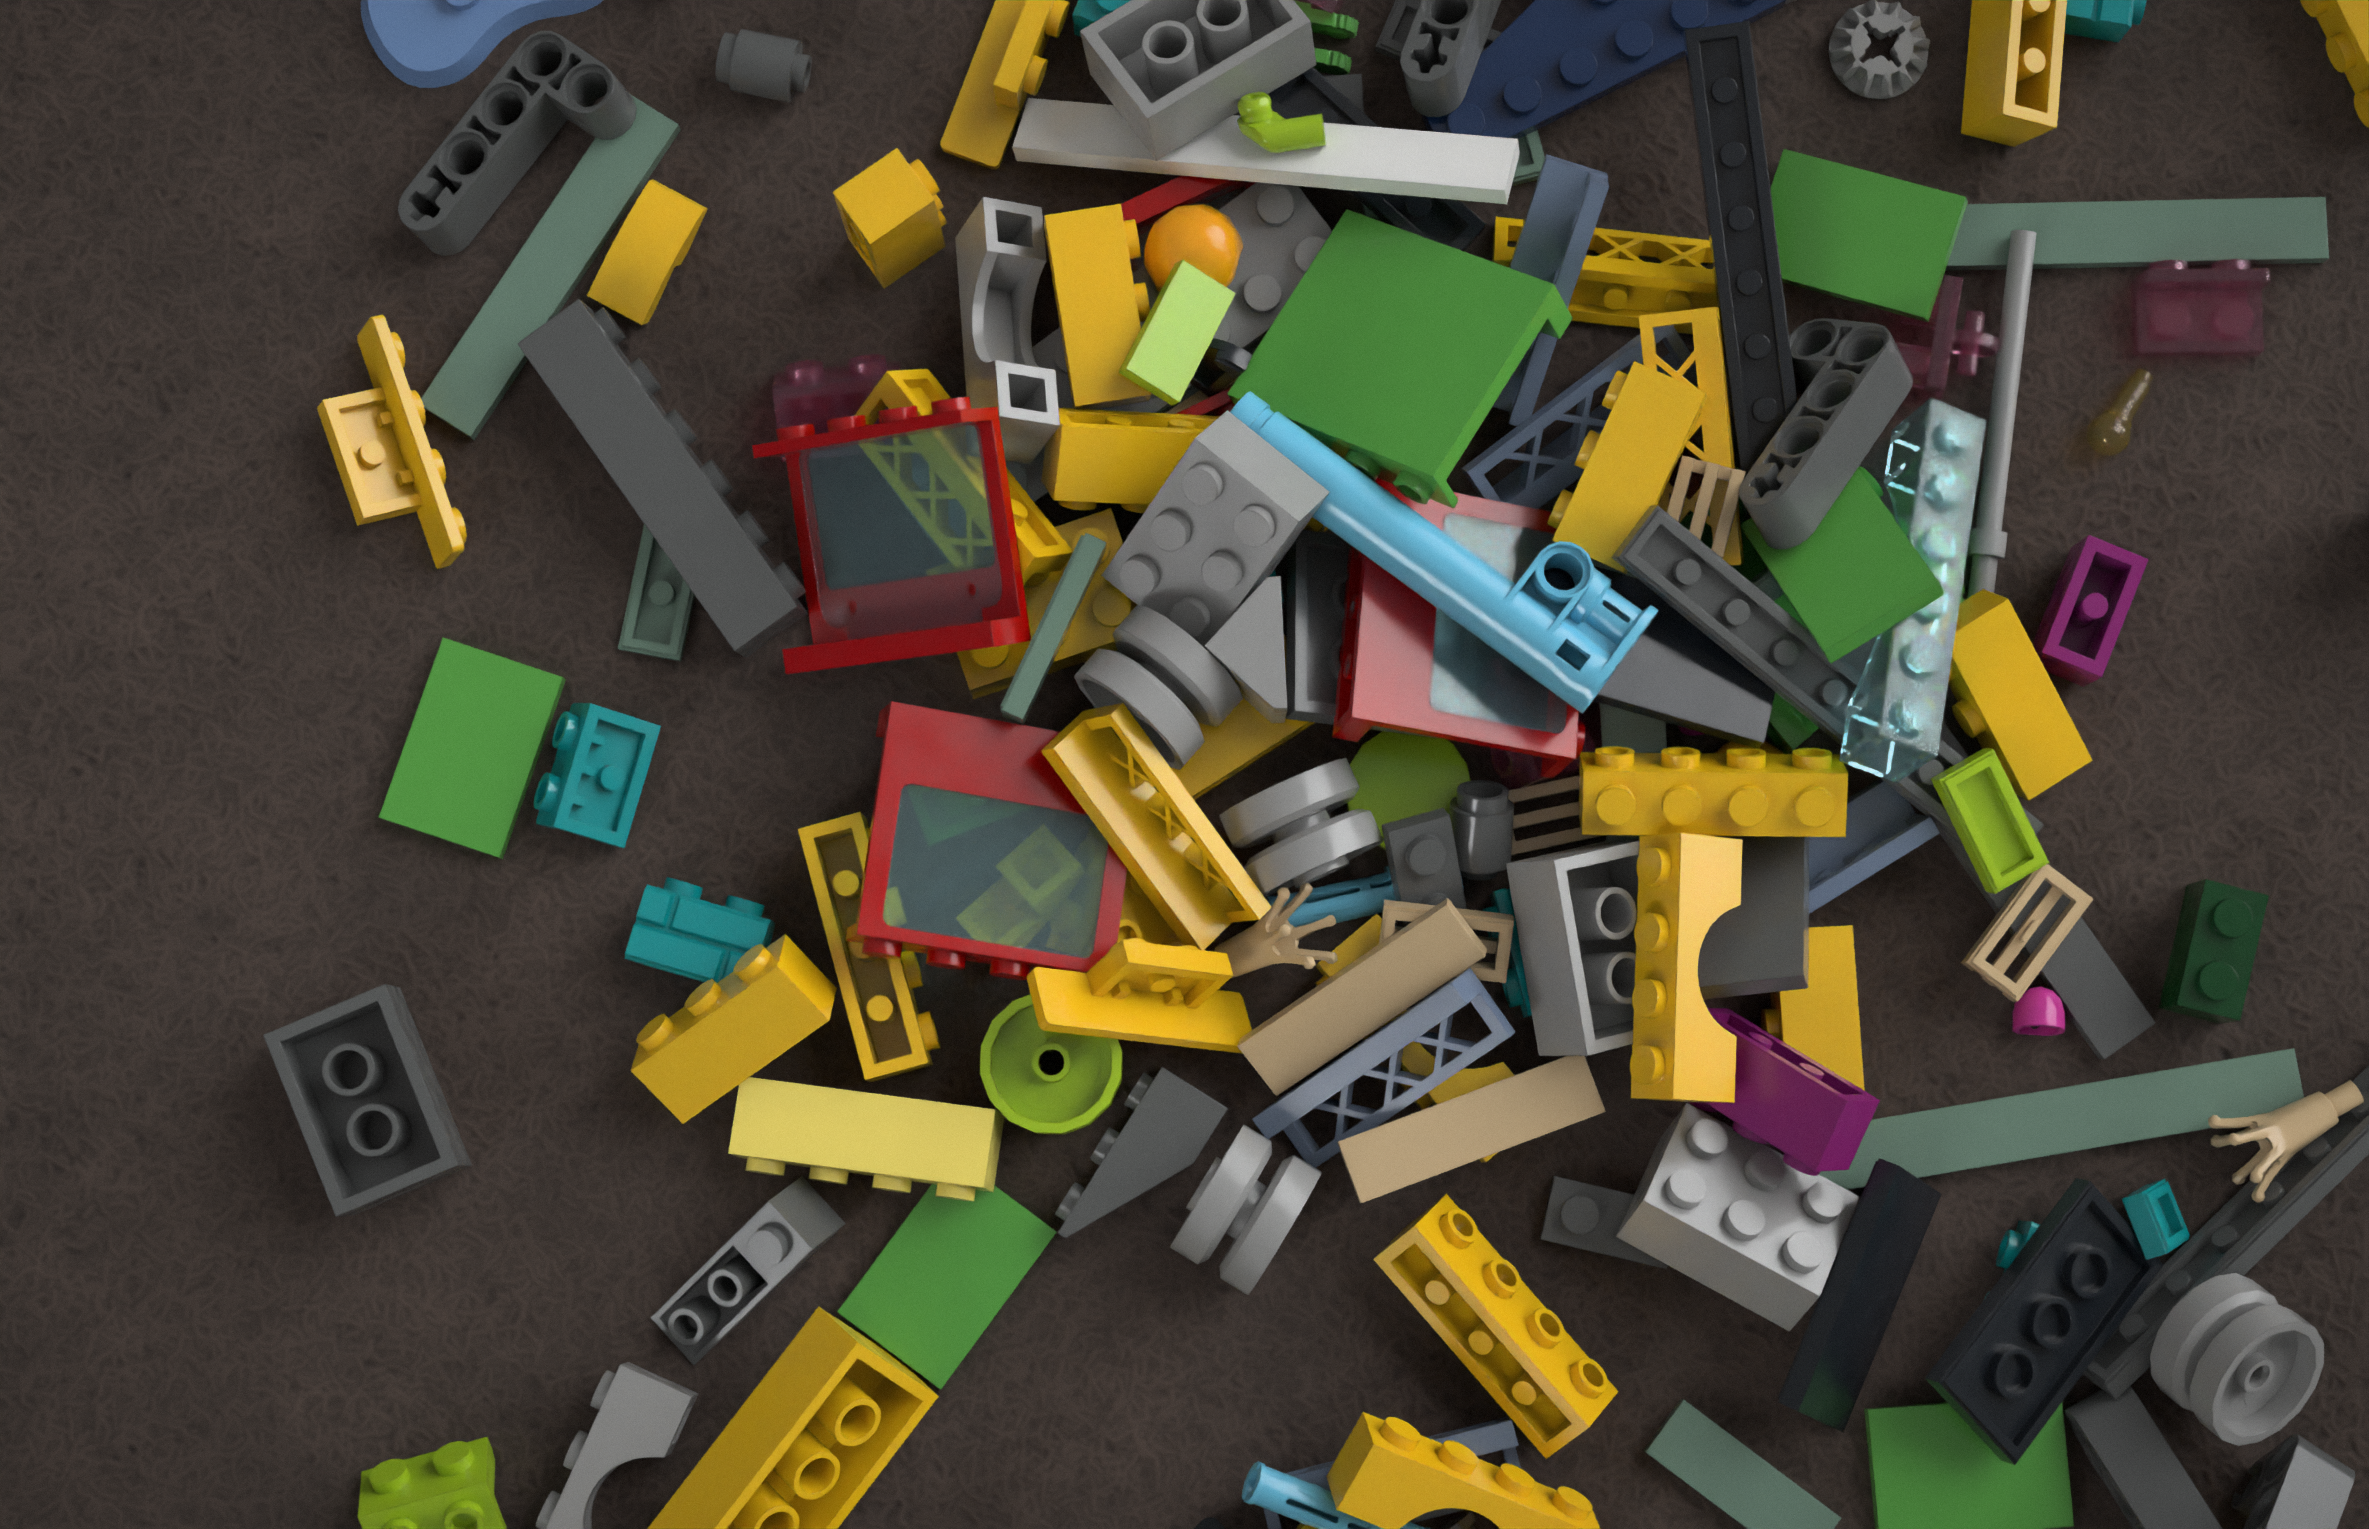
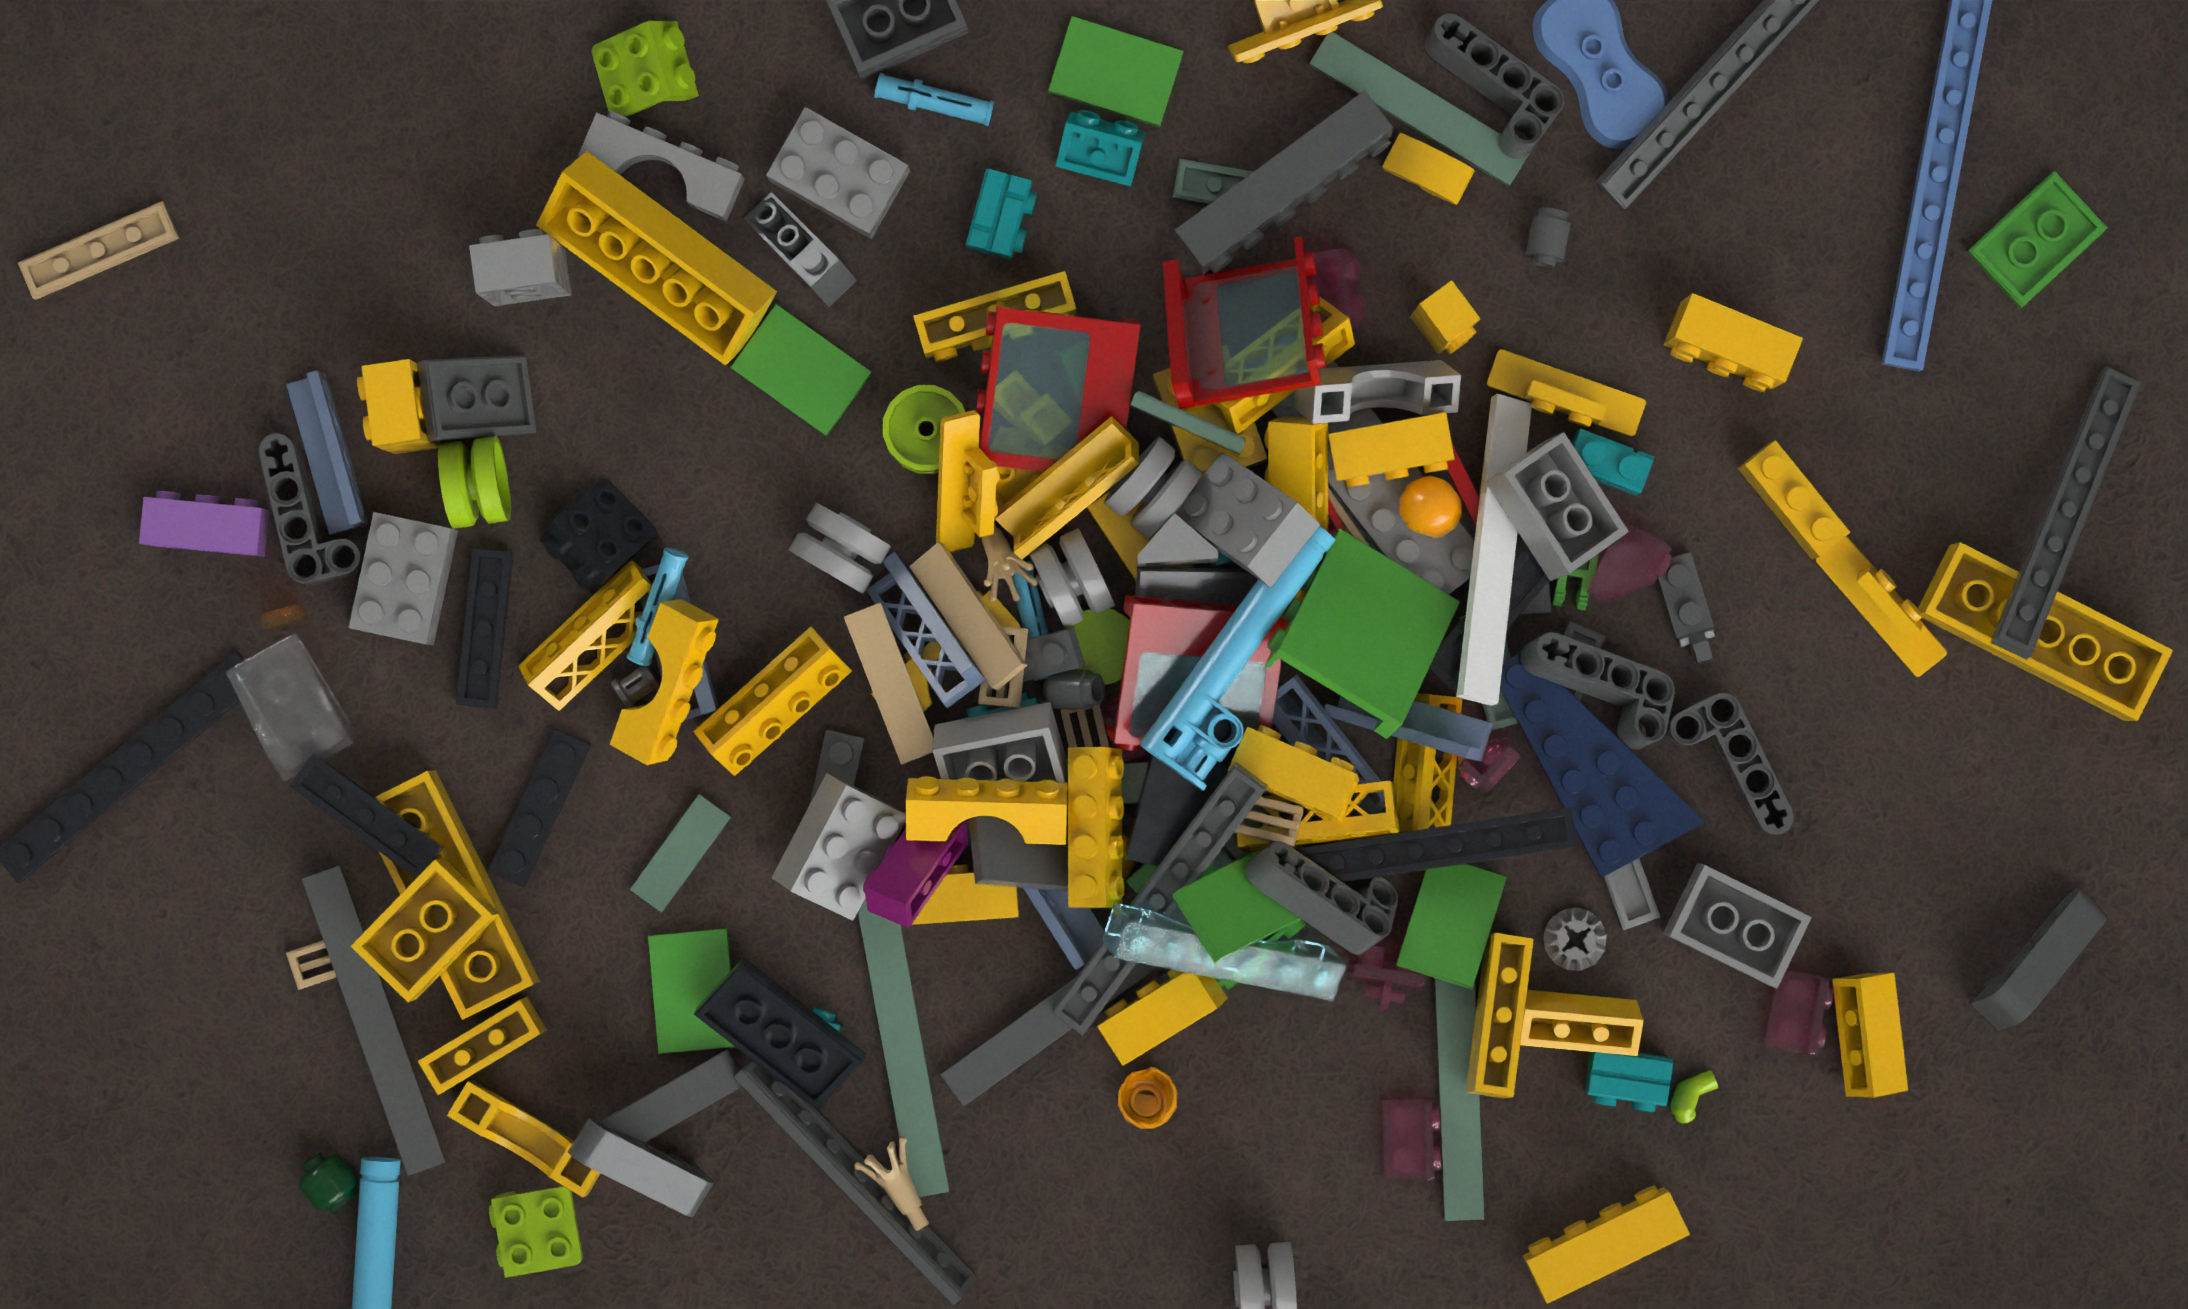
camera: 90 degrees right, 5 degrees up
(507, 1045) = (933, 99): none -> medium azure pin
(623, 1204) = (838, 173): none -> light grey brick
(733, 1027) = (944, 235): yellow brick -> none
(866, 1135) = (881, 318): light yellow brick -> none
(1157, 1142) = (880, 495): dark grey slope -> none
(1177, 332) = (1374, 495): lime tile -> none
(1220, 367) = (1360, 516): black tile -> none
(1274, 131) = (1504, 553): lime arm -> none
(1610, 148) = (1495, 764): none -> clear pink bracket
(1859, 1295) = (793, 921): black tile -> none
(1988, 540) = (1261, 1005): light grey bar -> none
(1989, 820) = (1082, 999): lime tile -> none
(1994, 973) = (1044, 1045): tan tile -> none
(2013, 159) = (1499, 1016): none -> yellow brick
(2039, 1008) = (968, 1035): dark pink hinge -> none
(2088, 610) = (1216, 1063): magenta brick -> none
(2111, 431) = (1332, 1083): clear yellow piece -> none
(2156, 1218) = (843, 1104): teal tile -> none
(2158, 722) = (1147, 1110): none -> light orange hair
(2213, 951) = (1006, 1141): dark green brick -> none
(2237, 1359) = (758, 1148): light grey wheel -> none

